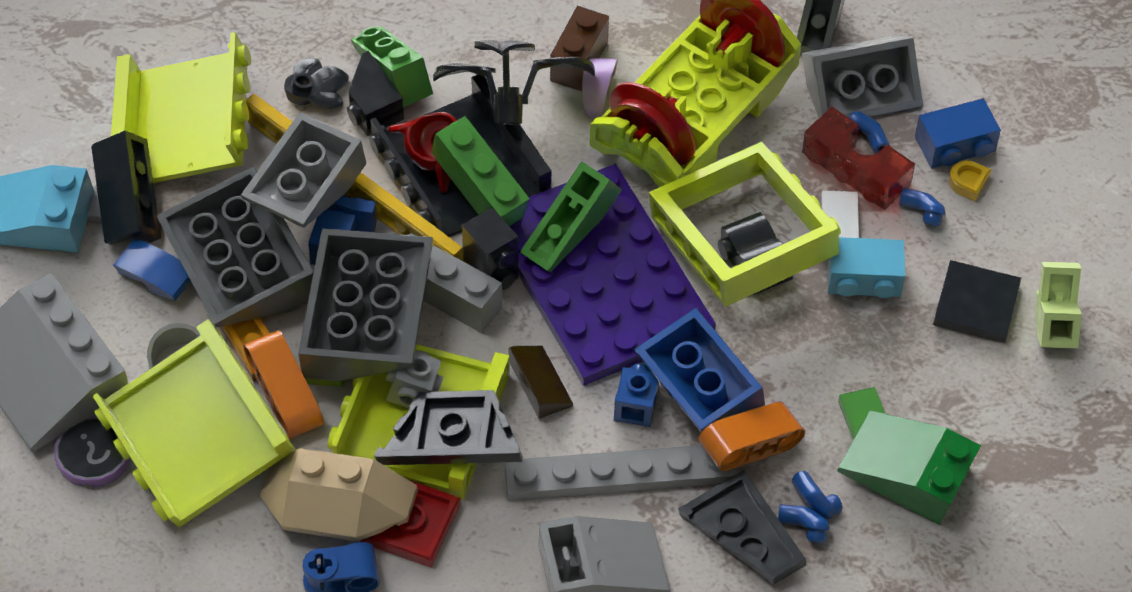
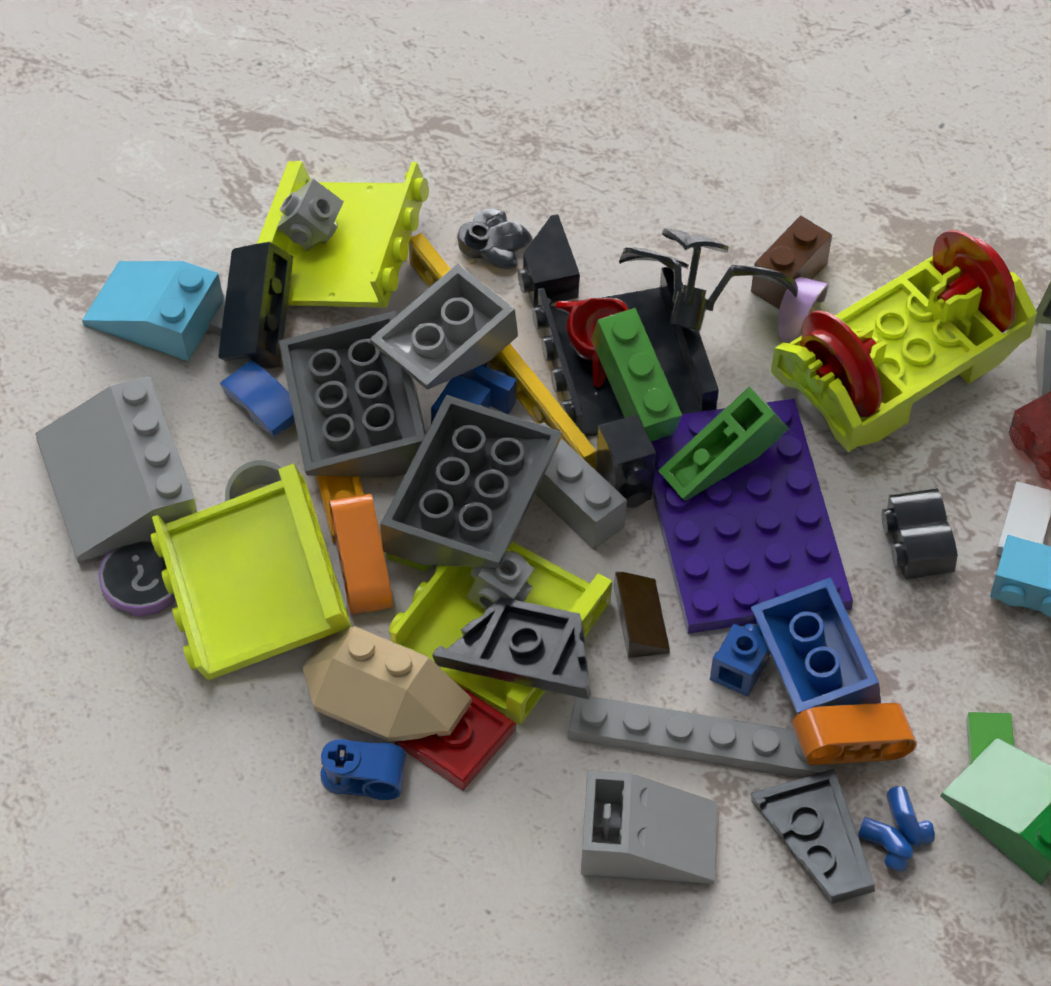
camera: 15 degrees right, 0 degrees up
(151, 99) = (310, 215): none -> light grey brick
(398, 61) = (587, 235): bright green slope -> none
(766, 269) = (926, 551): neon yellow window -> none

